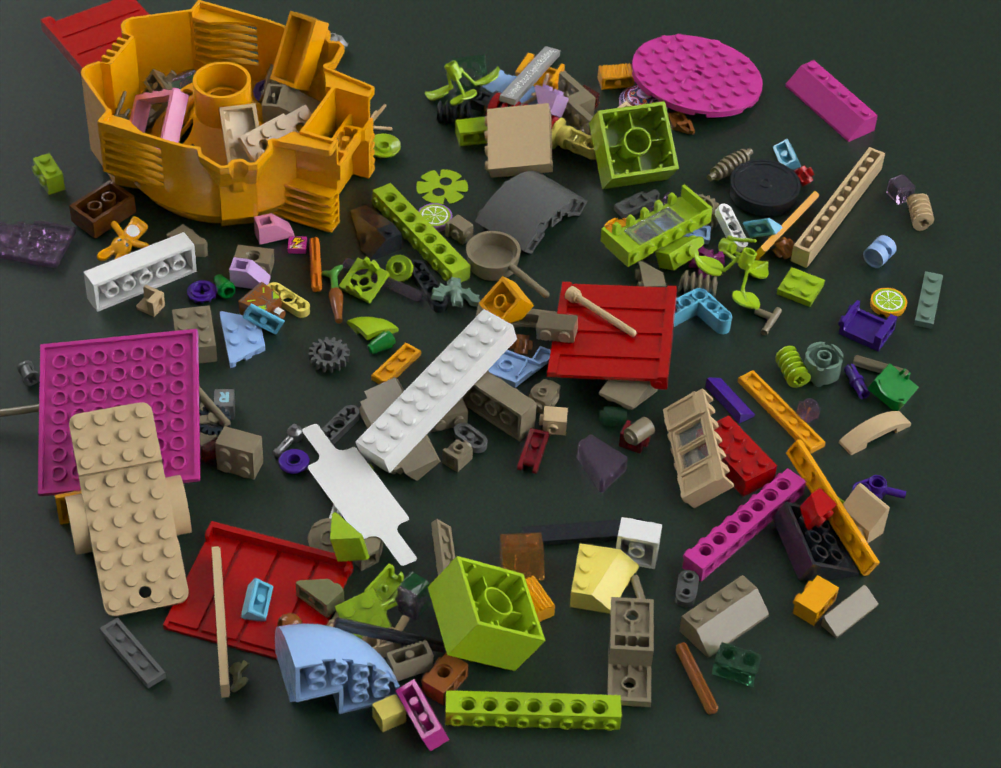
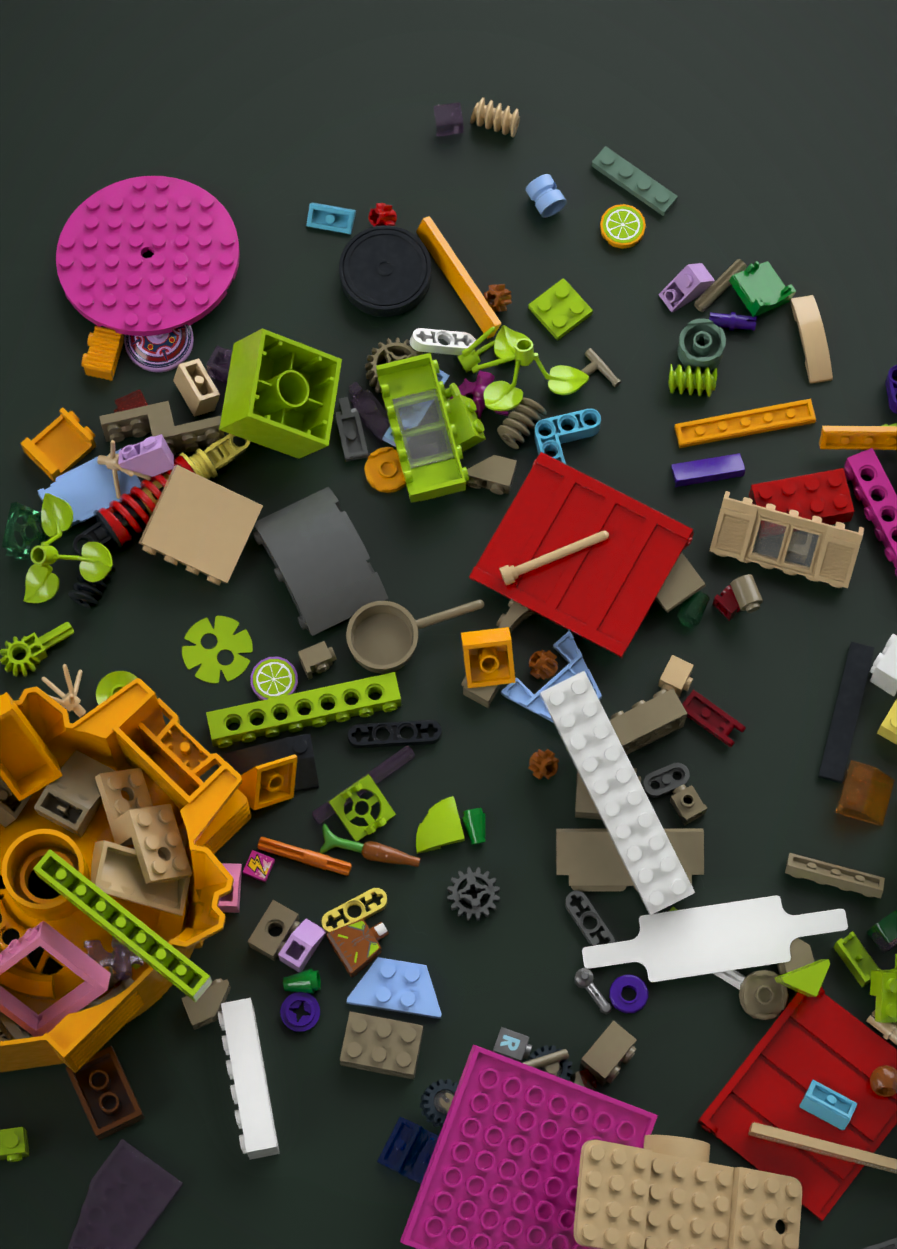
camera: 65 degrees left, 25 degrees up
(127, 238) = (180, 1087): light orange animal -> none
(152, 301) = (296, 1082): tan panel -> none
(195, 115) = (123, 925): none -> lime brick
(263, 319) = (390, 953): medium azure slope -> none
(320, 594) = (852, 1030): olive slope -> none
(356, 224) = (269, 782): none -> light orange slope
(393, 99) = (33, 647): none -> lime gear
(396, 364) = (513, 821): light orange tile -> none
(399, 268) = (359, 757): lime plate -> none
(455, 292) = (423, 706): sand green animal -> none
(471, 131) = (136, 571): lime brick -> none
(529, 75) = (72, 459): light grey tile -> none
(545, 394) = (632, 673): dark tan hand -> none
(557, 327) = (561, 616): dark tan brick -> none
(601, 462) = (756, 652): clear purple slope -> none
(680, 123) = (223, 314): dark orange slope -> none
(728, 164) = (325, 291): dark tan piece -> none
(762, 227) = (462, 307): medium azure slope -> none
(808, 410) = (761, 394): gear -> none
(832, 101) = (260, 119): dark pink slope -> none
(837, 207) = (455, 204): tan brick -> none
(866, 327) = (653, 267): dark purple panel -> none
(866, 344) = (686, 286): none -> lavender slope

